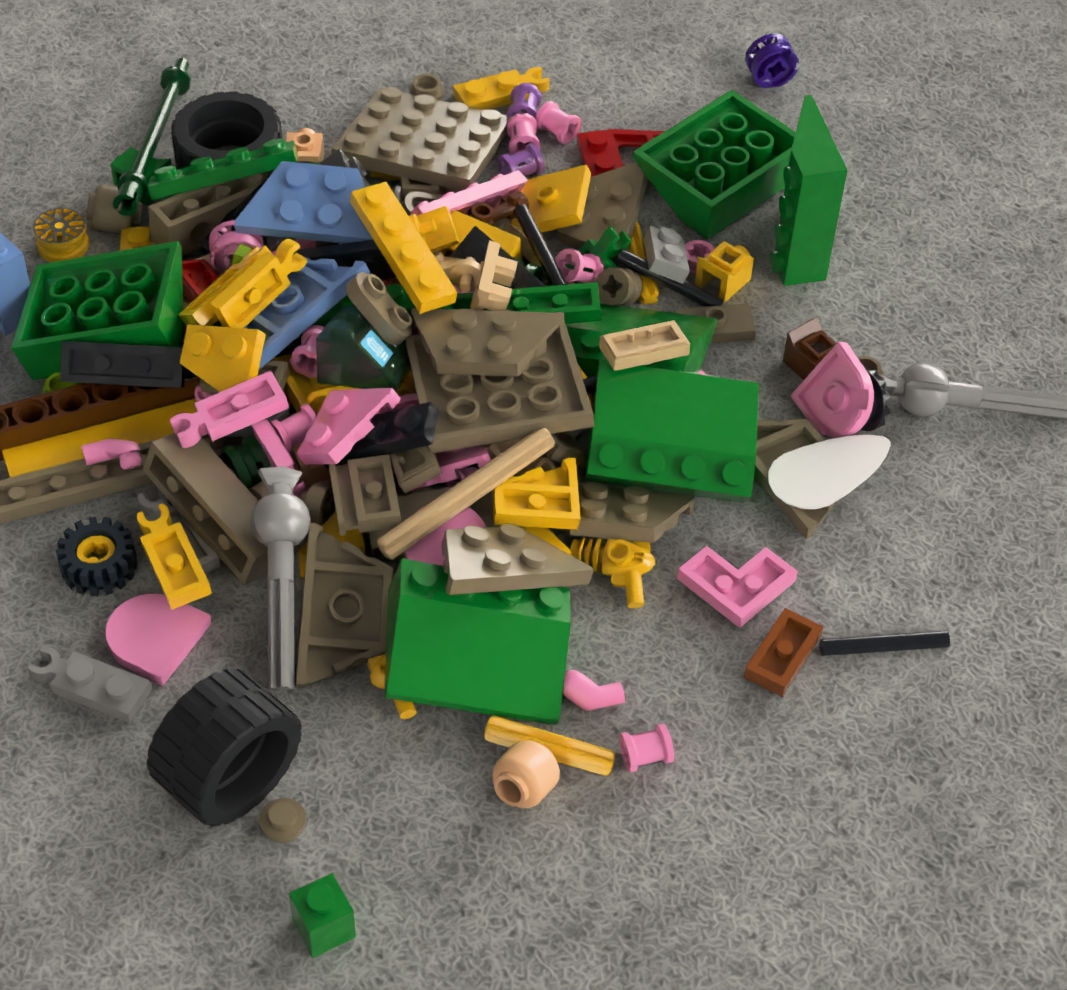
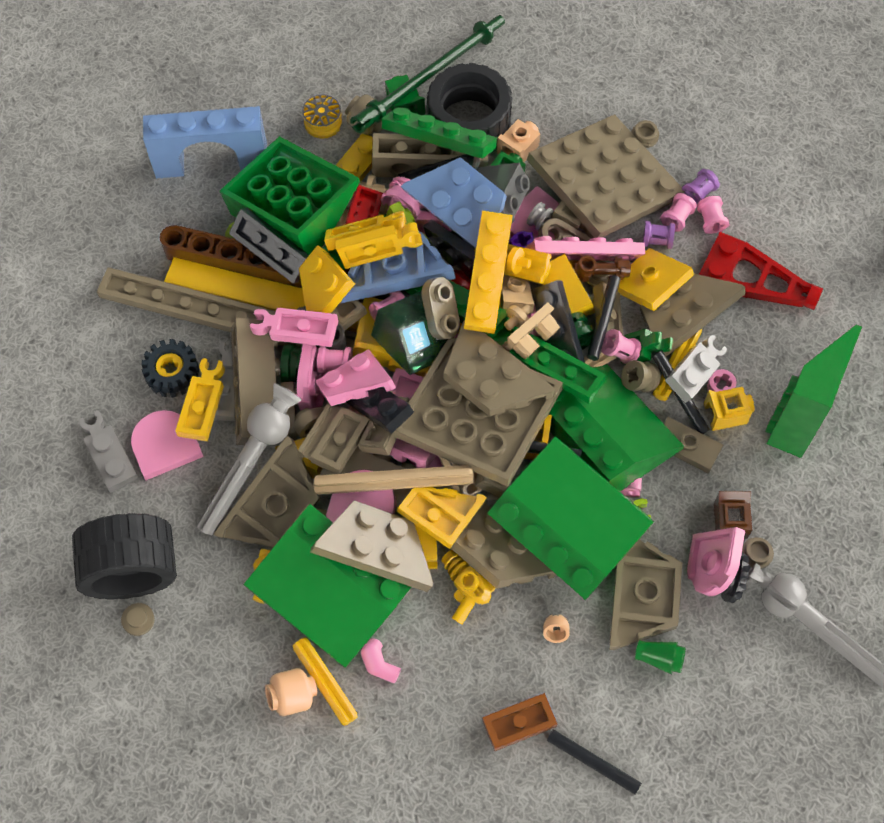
camera: 40 degrees right, 15 degrees up
(111, 449) = (227, 300): bright pink arm -> none
(322, 915) = (106, 699): green brick -> none
(496, 89) = (690, 160): yellow plate -> none
(644, 345) = (592, 446): tan plate -> none
(646, 747) = (377, 726): bright pink bush -> none
(718, 162) = (793, 317): green slope -> none
(733, 591) = (528, 659): bright pink plate -> none
(745, 543) = (552, 635): none -> light nougat hinge
(826, 470) = (661, 611): white sticker -> none
(864, 508) = (662, 655): none -> green cone

